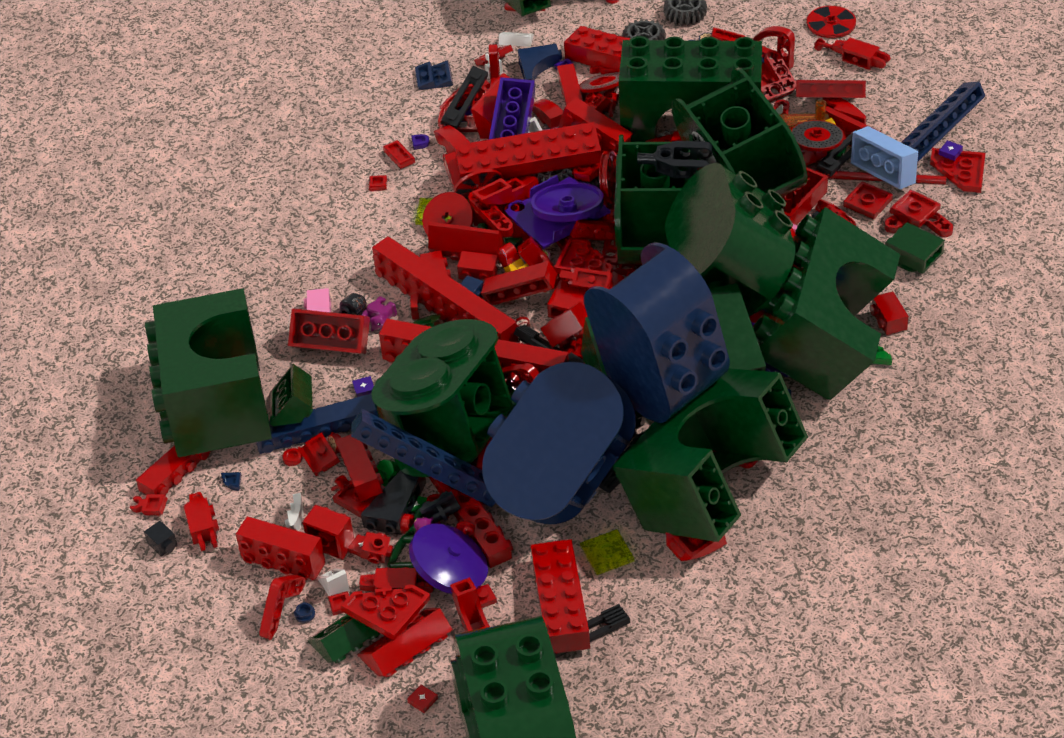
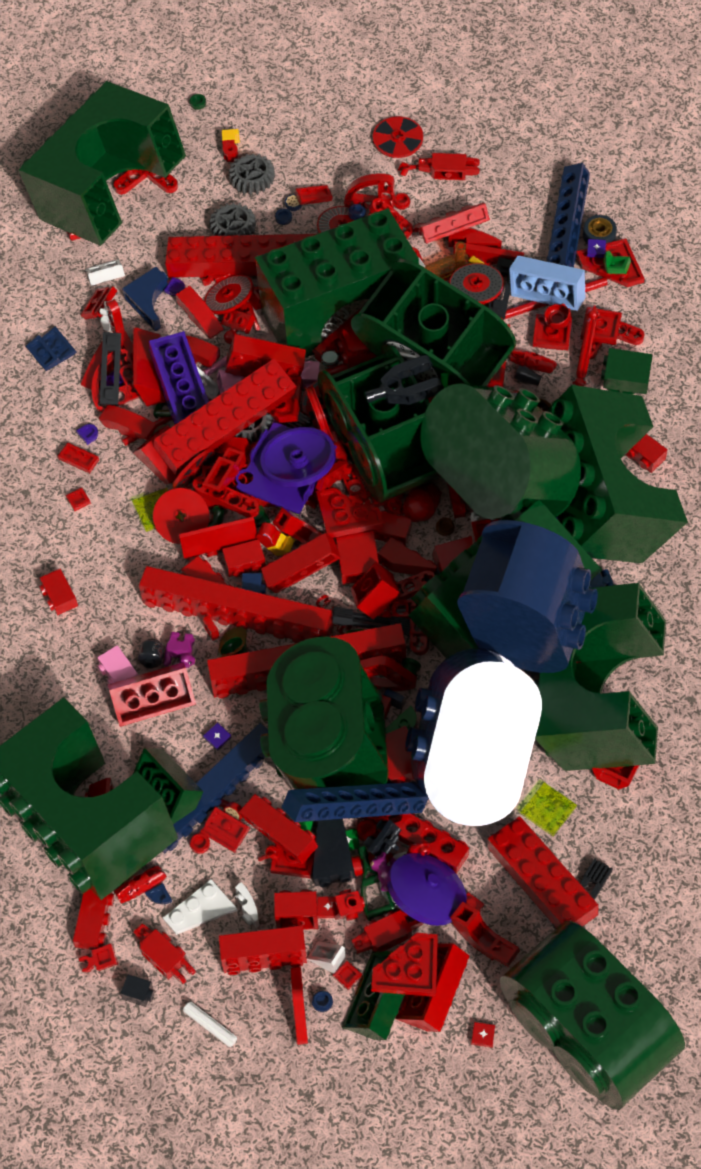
camera: 30 degrees left, 15 degrees up
(201, 589) = (210, 1024): none -> white axle
(220, 465) = (140, 884): none -> red hinge
(257, 502) = (202, 906): none -> white wing
(312, 238) = (58, 592): none -> red brick
(586, 278) = (367, 534): red hinge -> none
(801, 66) = (402, 201): none -> red plate
(876, 186) = (557, 316): none -> red hair
(892, 212) = (586, 347): none -> red wheel
(959, 166) = (616, 264): none -> green plate
(966, 136) = (599, 228): none -> wheel

